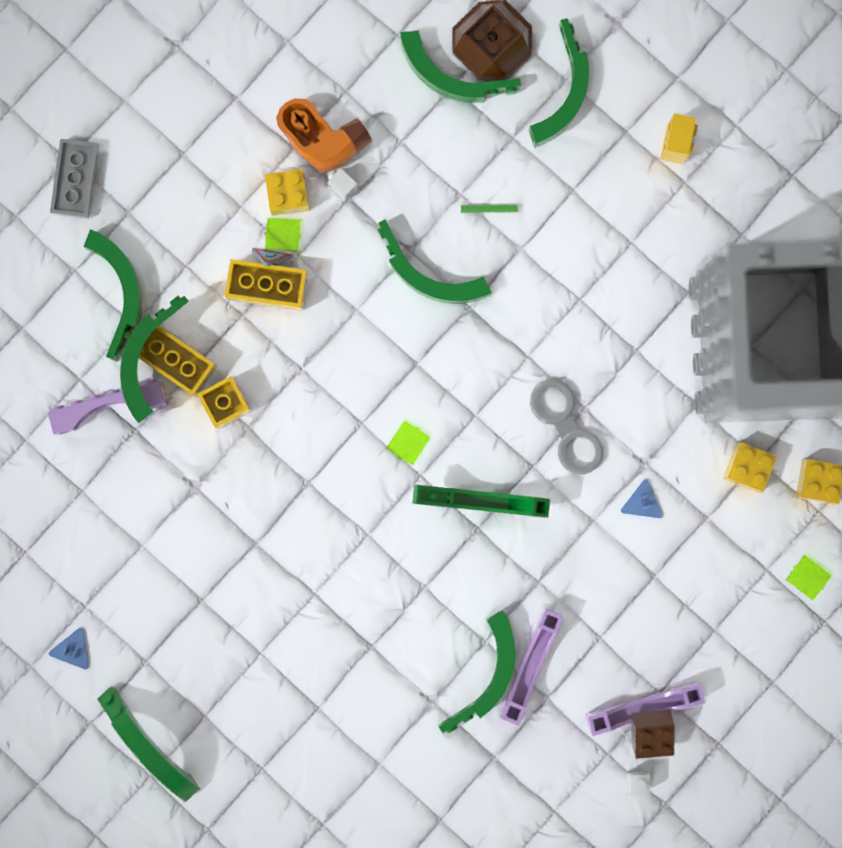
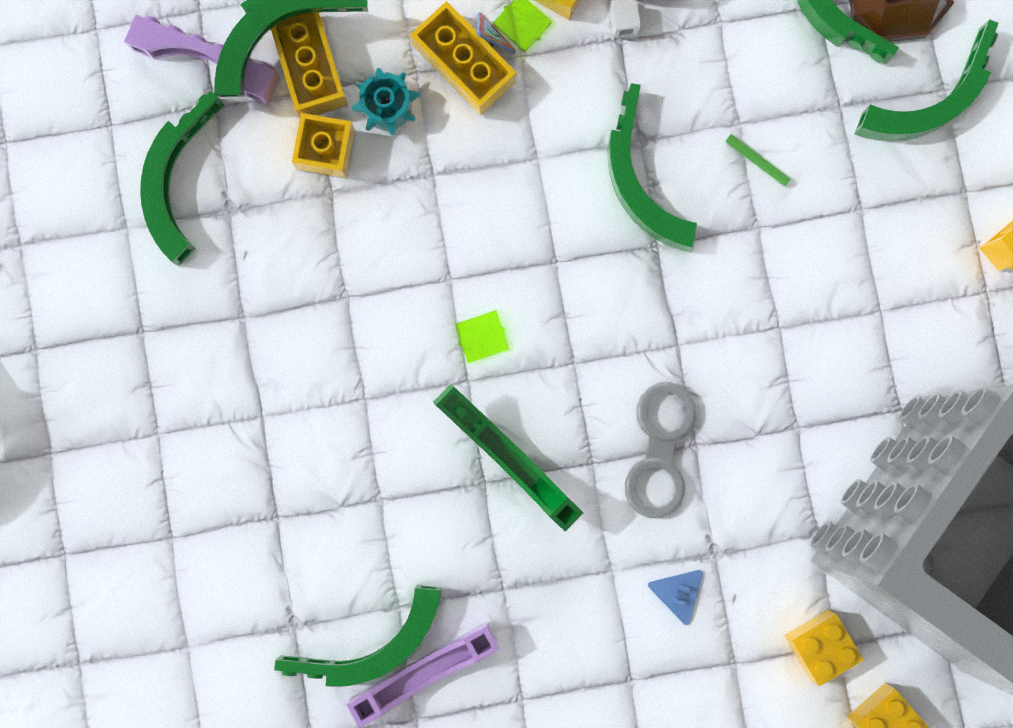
camera: 40 degrees right, 0 degrees up
(136, 499) = (157, 176): none -> green arch
(232, 339) = (381, 88): none -> teal brick

